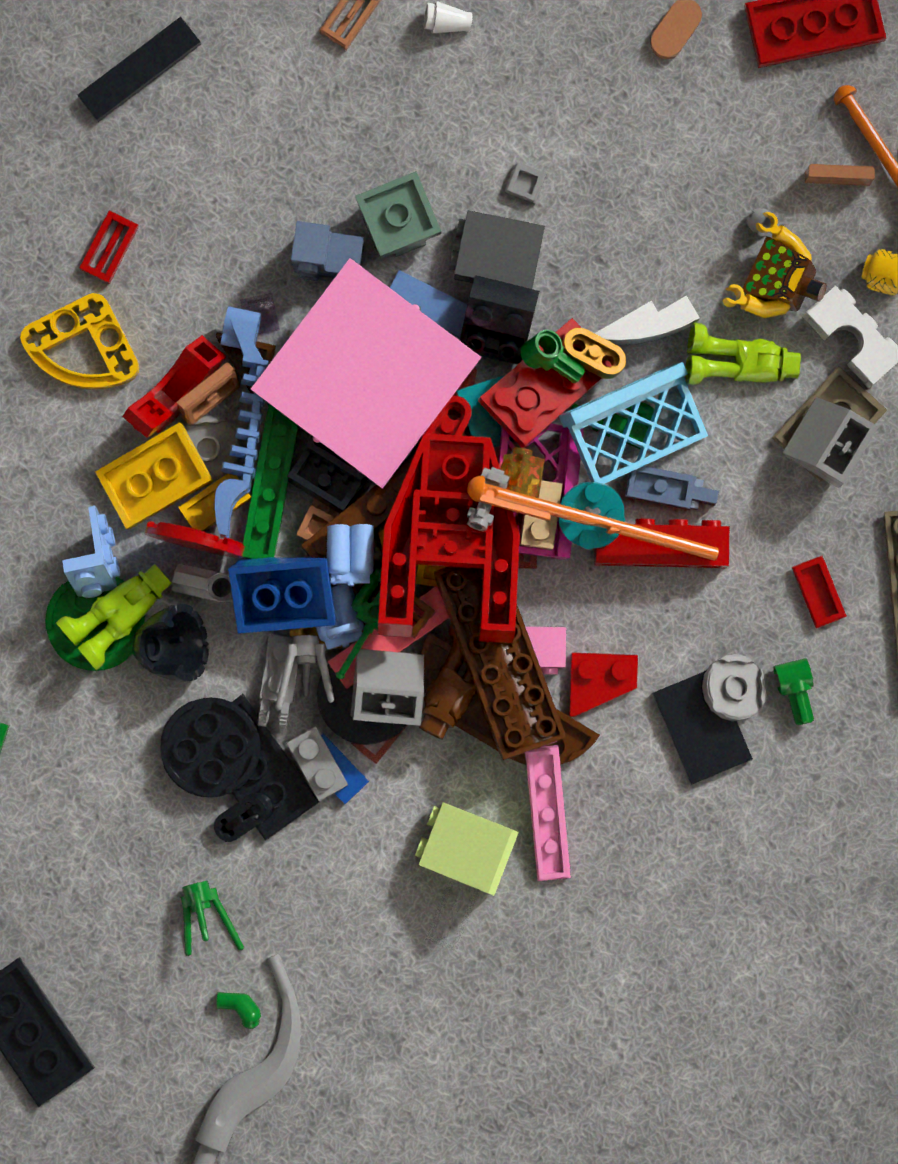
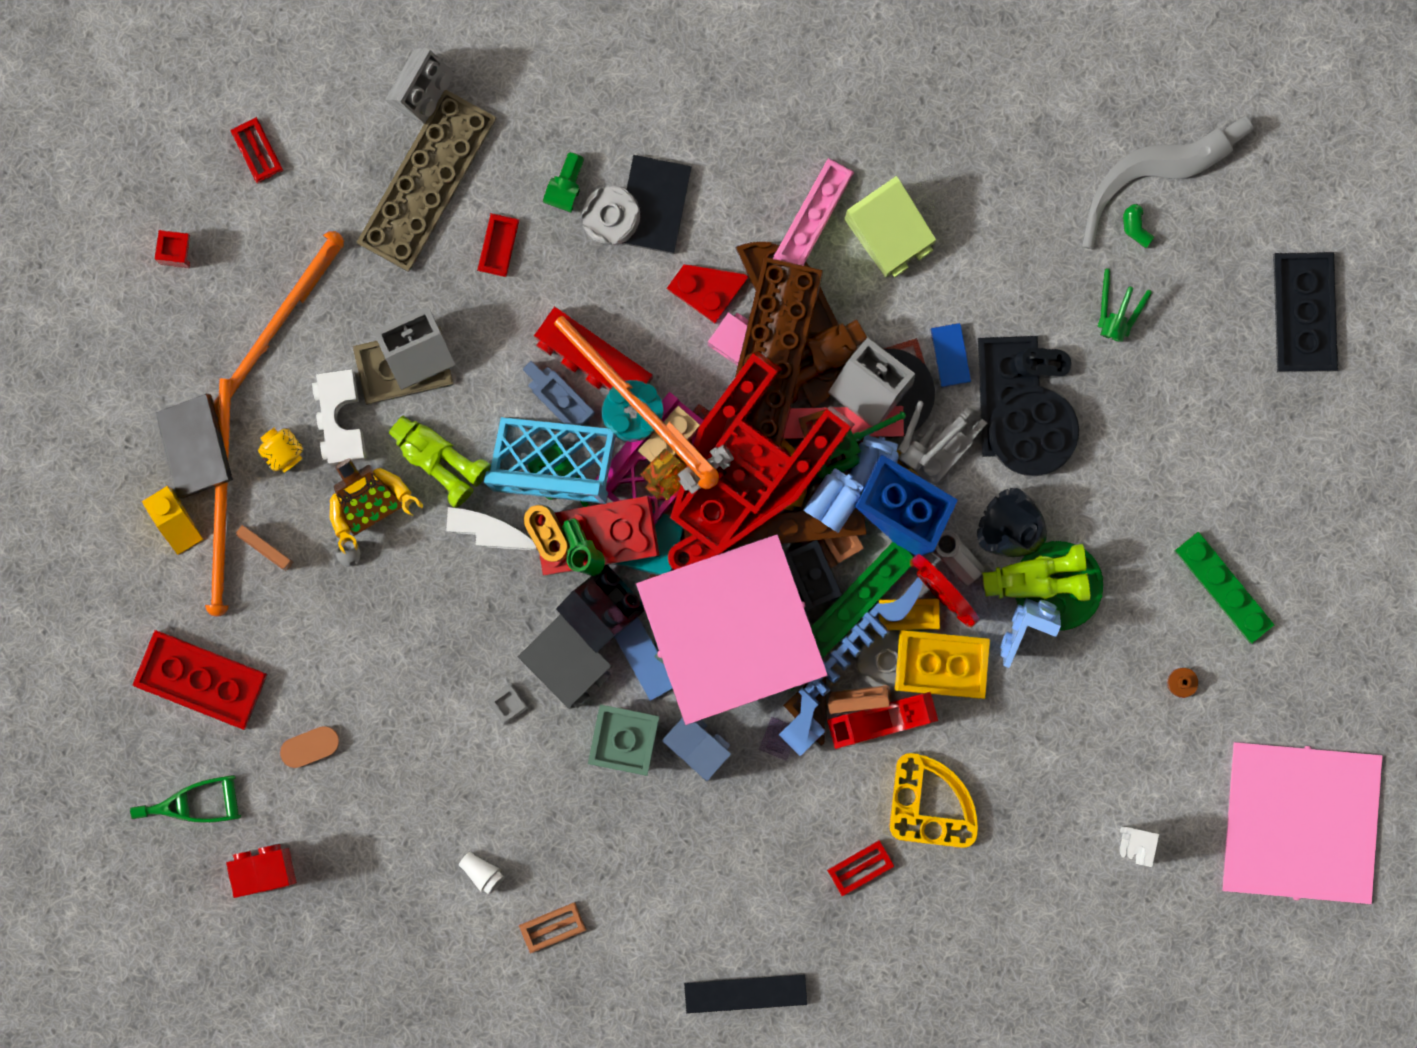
camera: 145 degrees left, 0 degrees up
(317, 763) = (961, 365): light grey plate -> none

